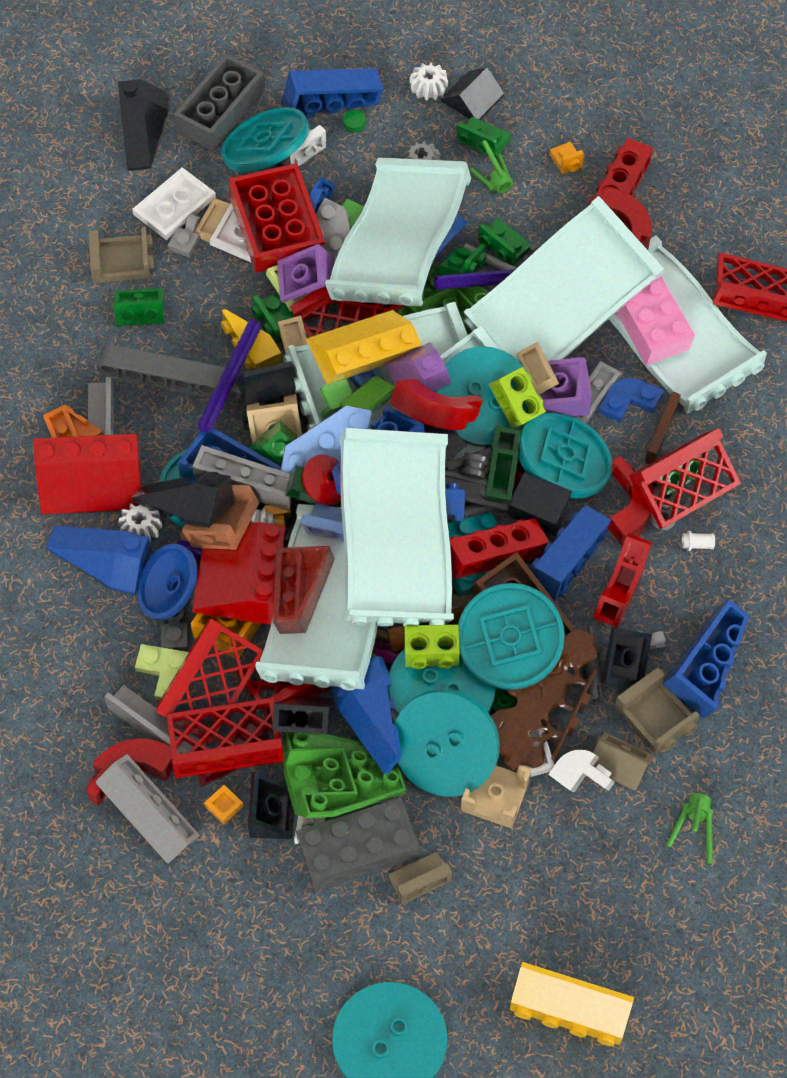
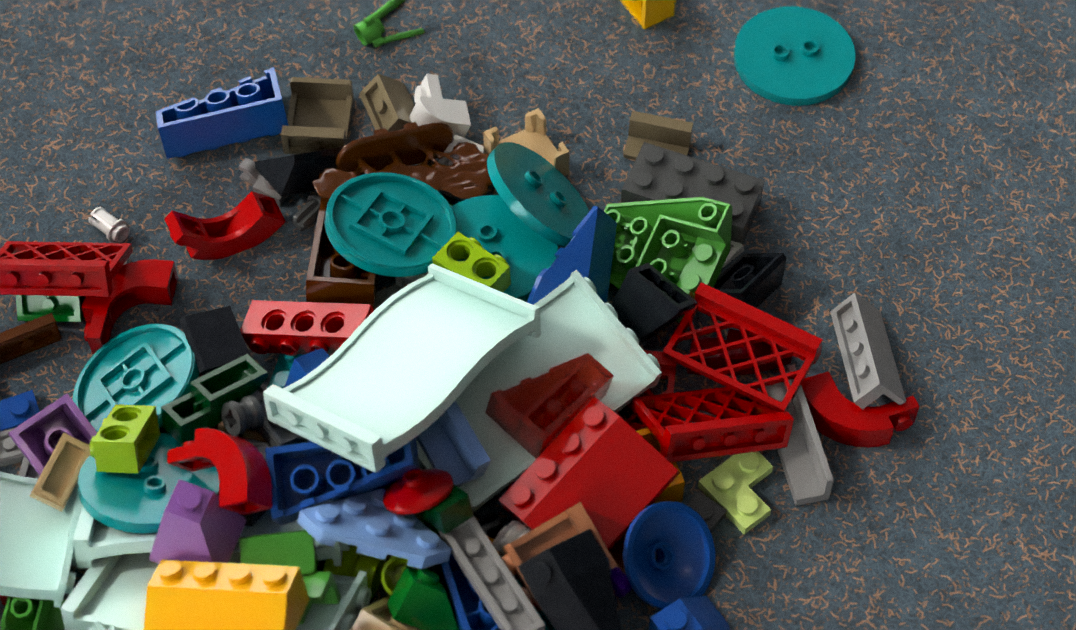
camera: 140 degrees left, 5 degrees down
(223, 804) = (789, 307): light orange tile -> none
(570, 551) = (265, 275): blue wedge -> none

